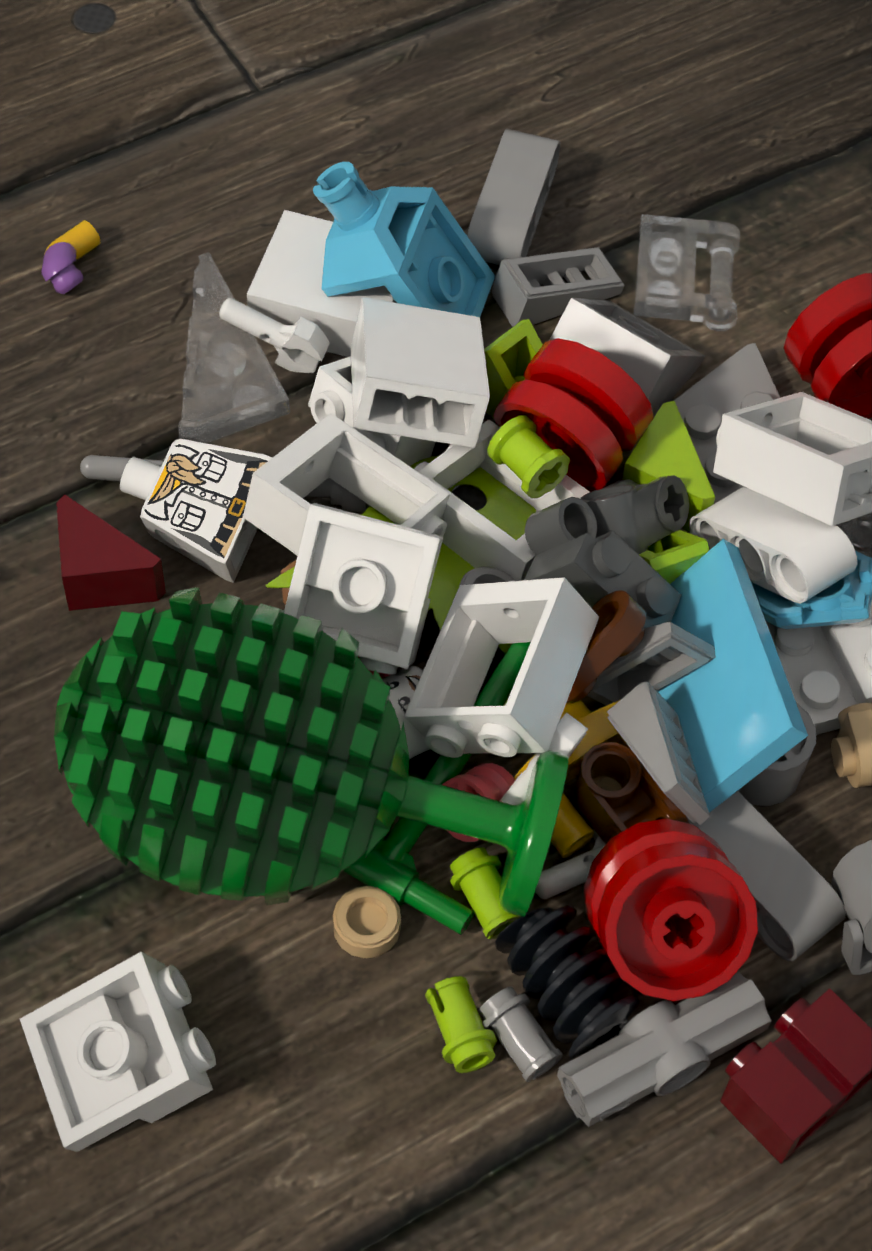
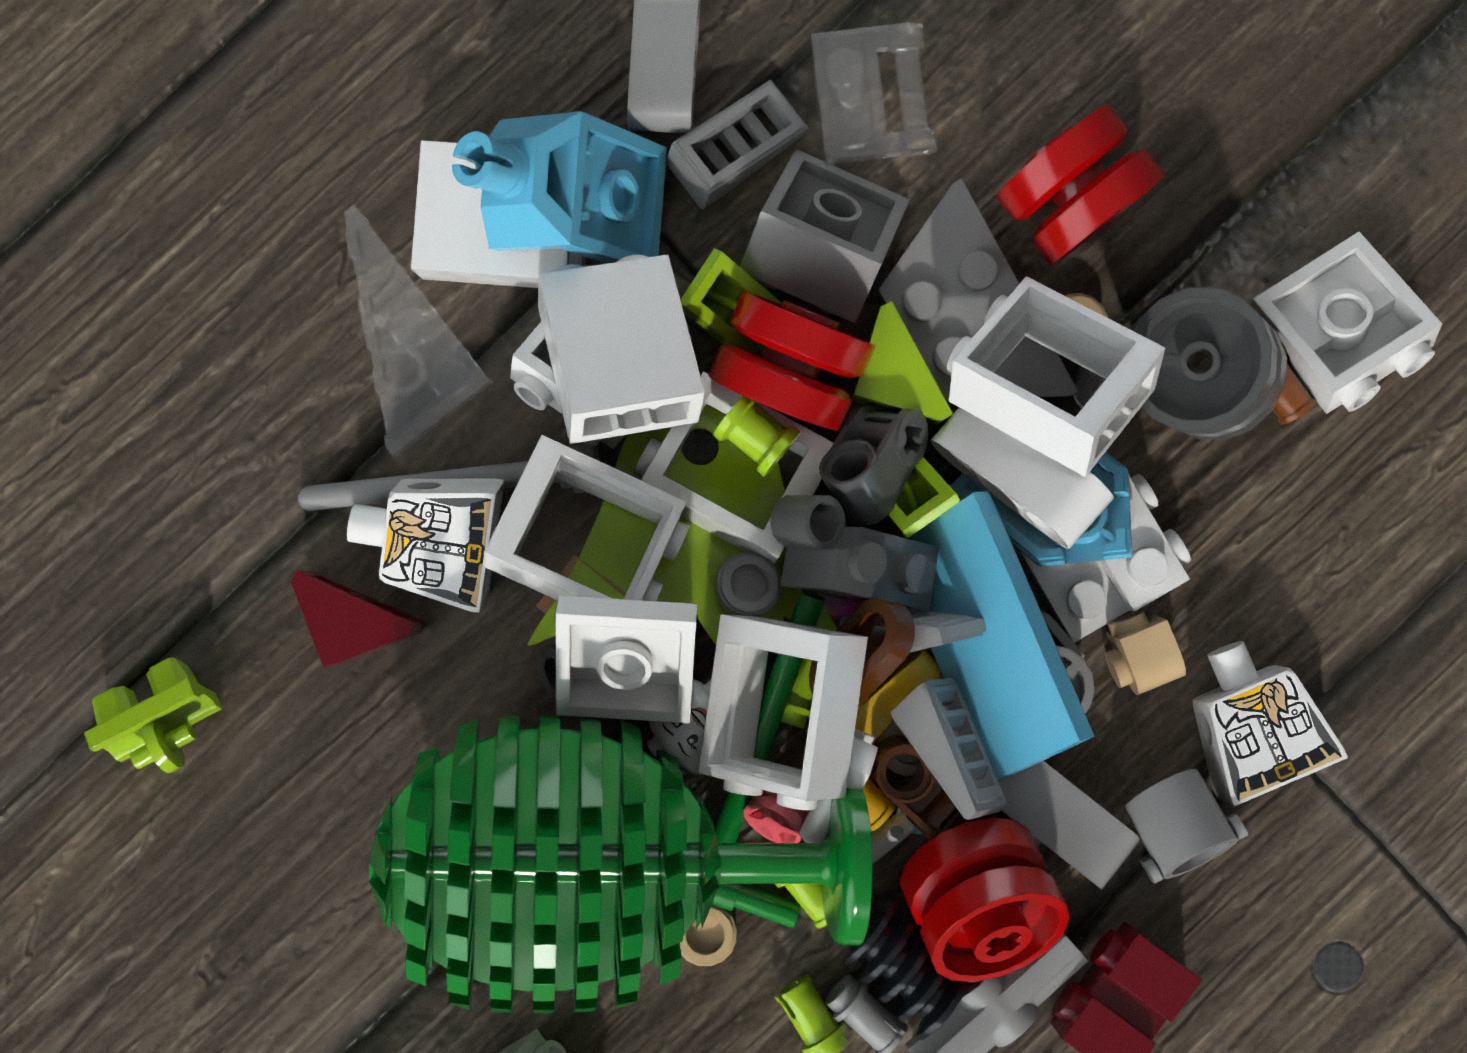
camera: 10 degrees left, 30 degrees up
(66, 250) = (196, 238): medium lavender arm -> none
(298, 345) = (472, 303): white bar -> none

